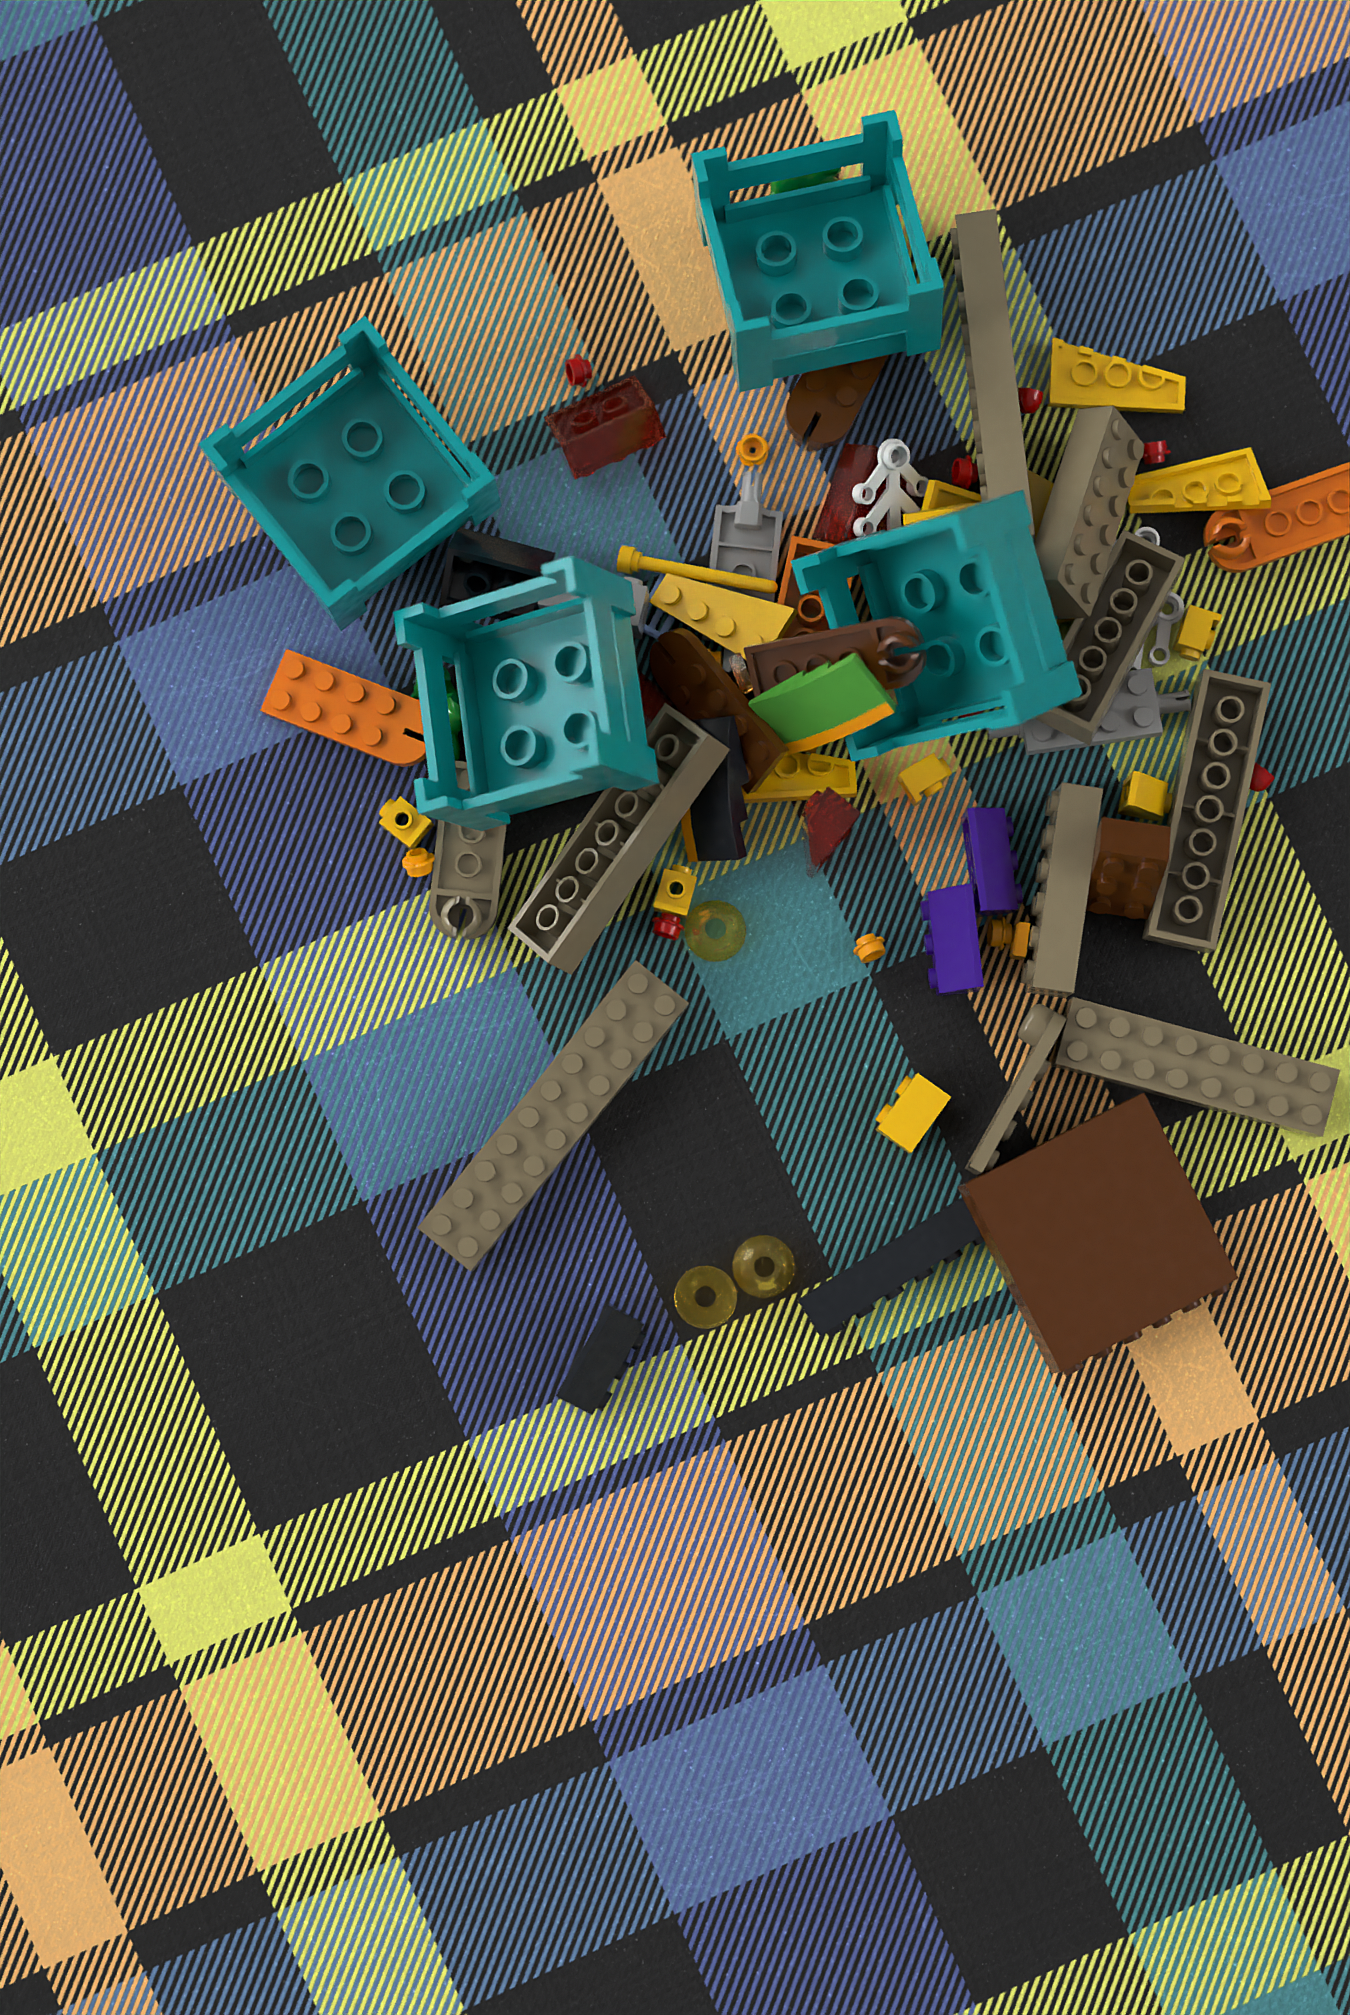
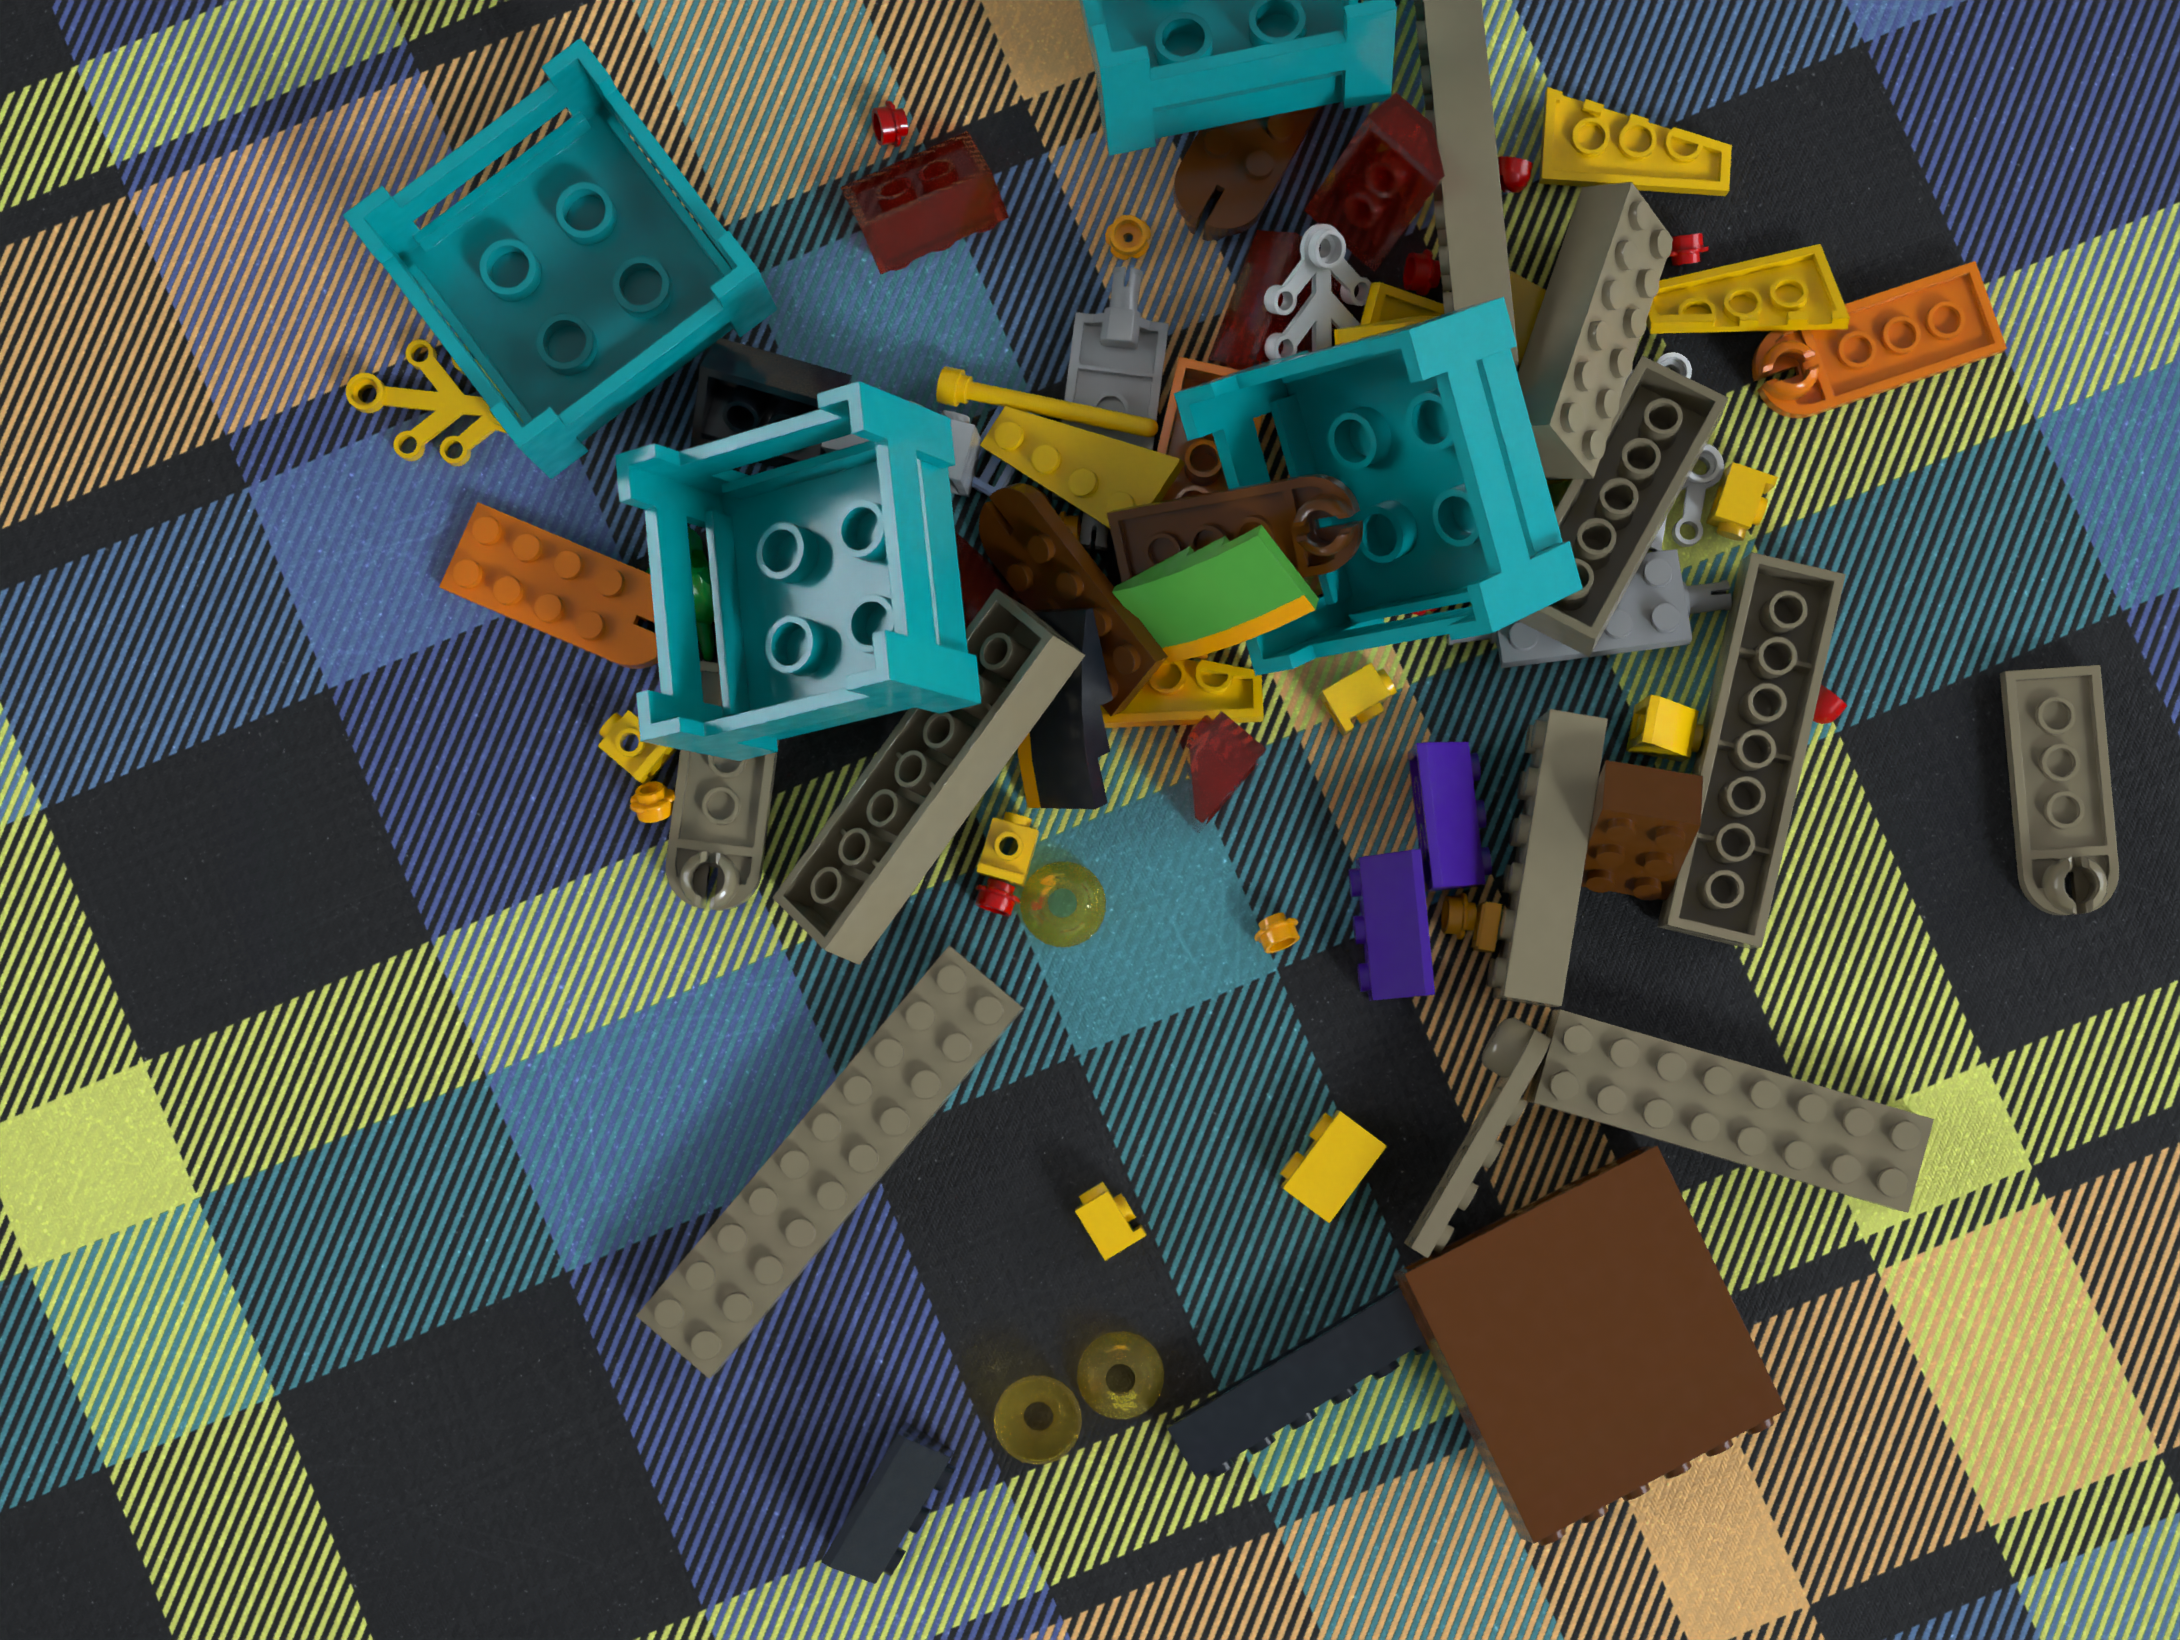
camera: 10 degrees right, 0 degrees up
(262, 579) = (447, 405): none -> yellow plant
(741, 673) = (1103, 547): clear orange tile -> none
(752, 1154) = (1108, 1220): none -> yellow brick
(934, 407) = (1380, 181): none -> clear red slope

